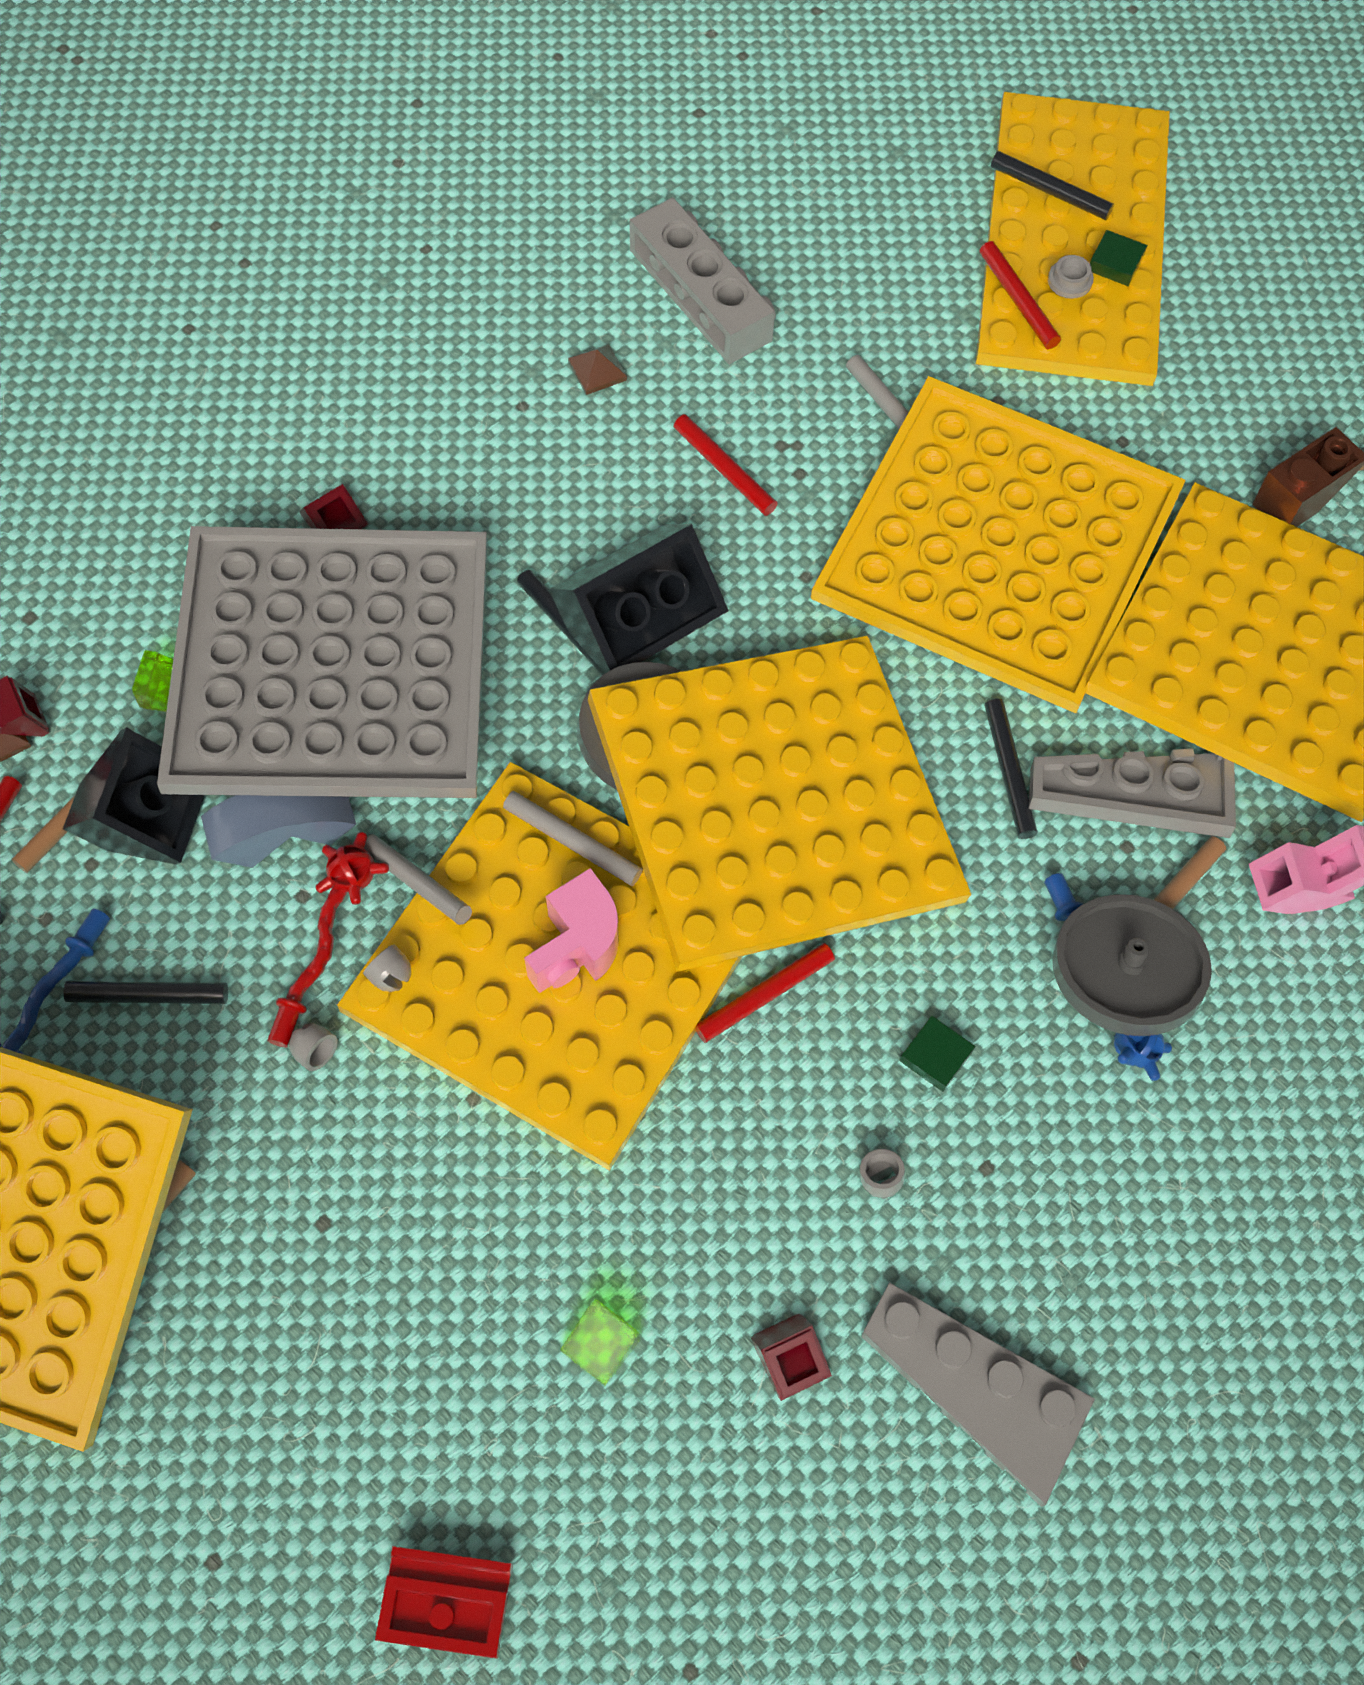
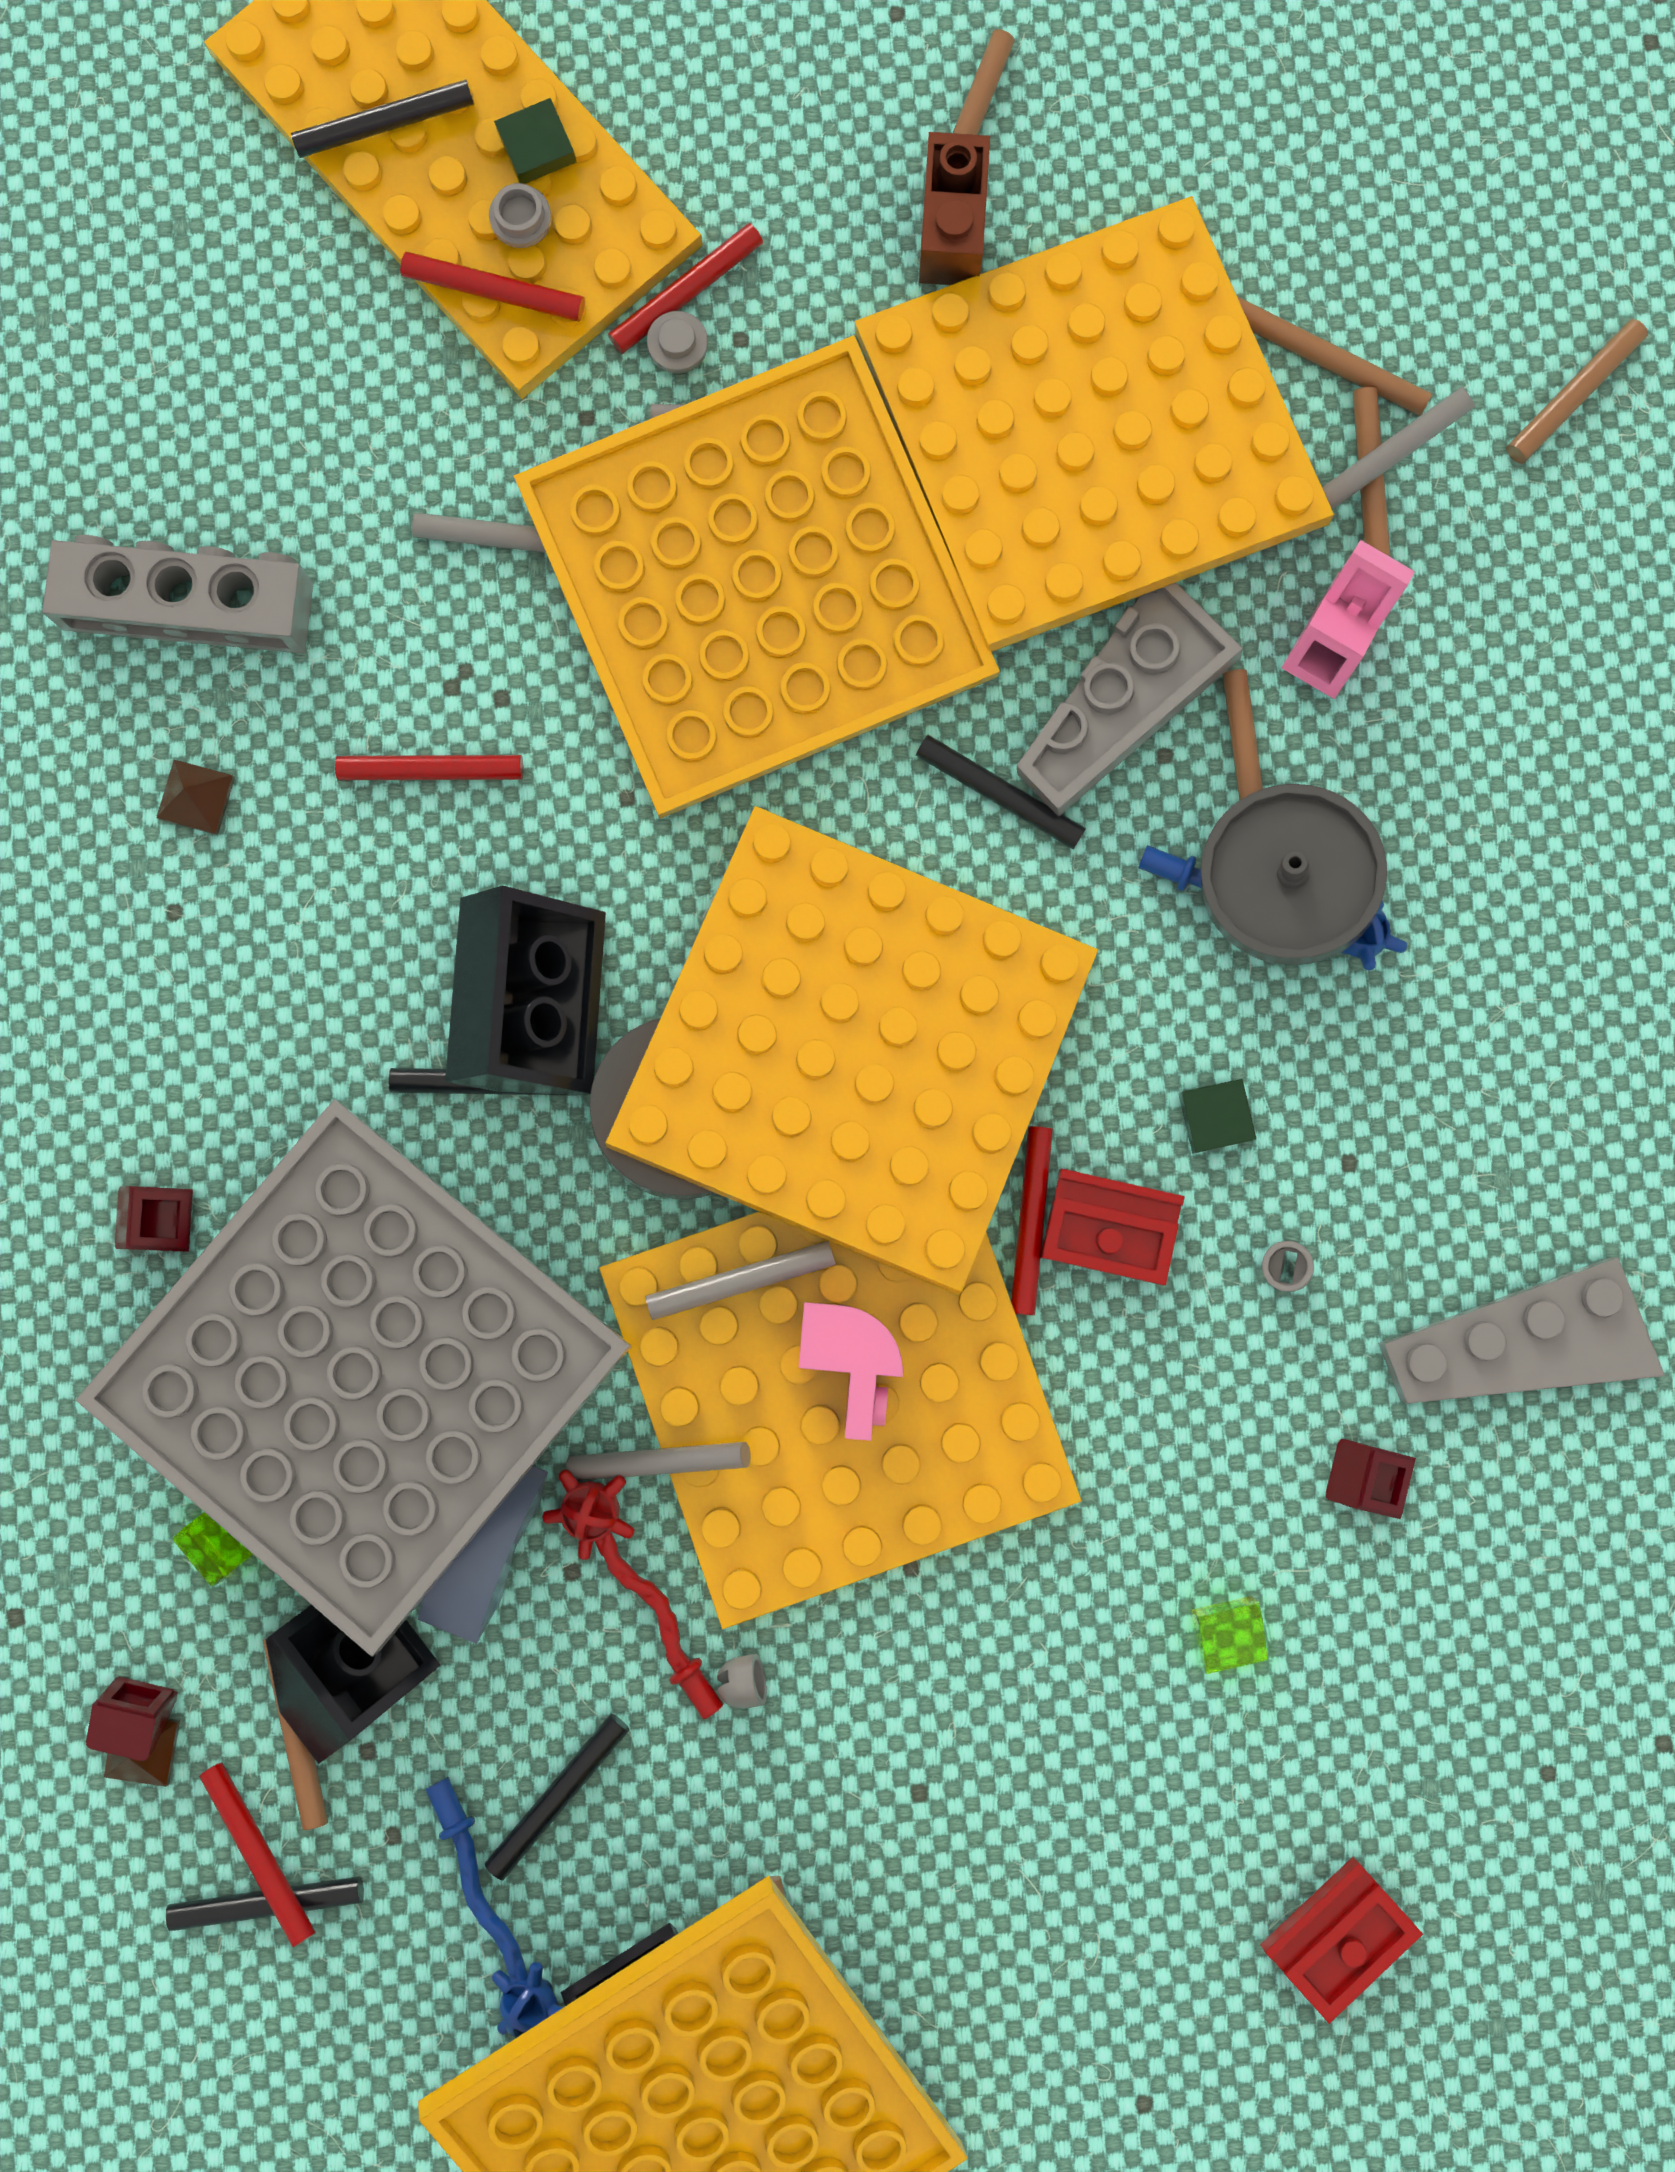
camera: 50 degrees left, 20 degrees up
(389, 969) = (739, 1562): light grey hinge -> none
(805, 1041) = (1112, 1227): none -> red plate
(1086, 409) = (677, 342): none -> light grey plate
(1120, 392) = (686, 287): none -> red bar

